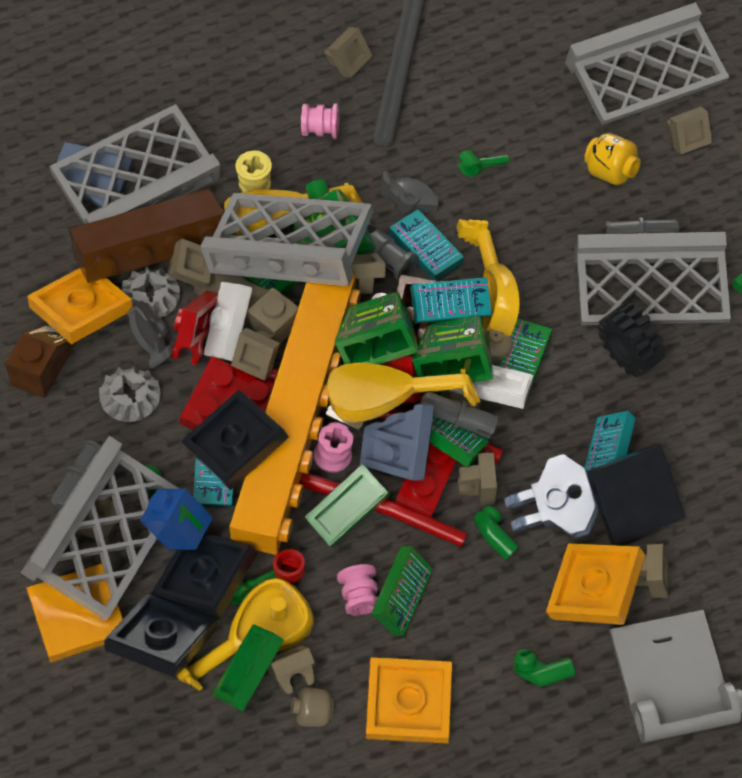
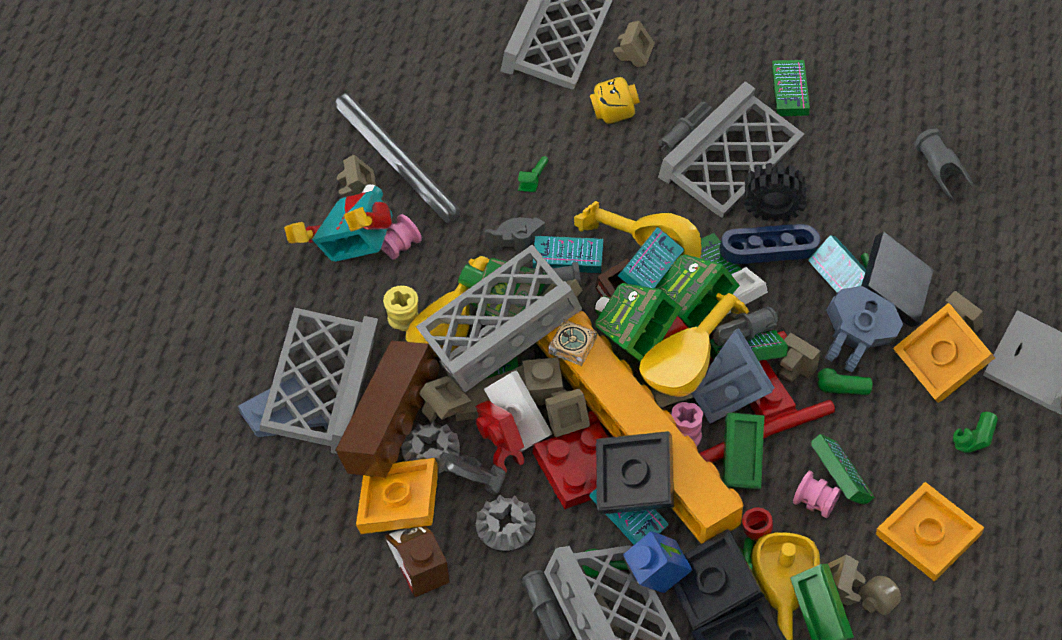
camera: 45 degrees left, 5 degrees down
(293, 81) = (351, 229): none -> teal torso
(312, 304) = (572, 342): none -> tile
(569, 361) = (769, 243): none -> dark blue plate

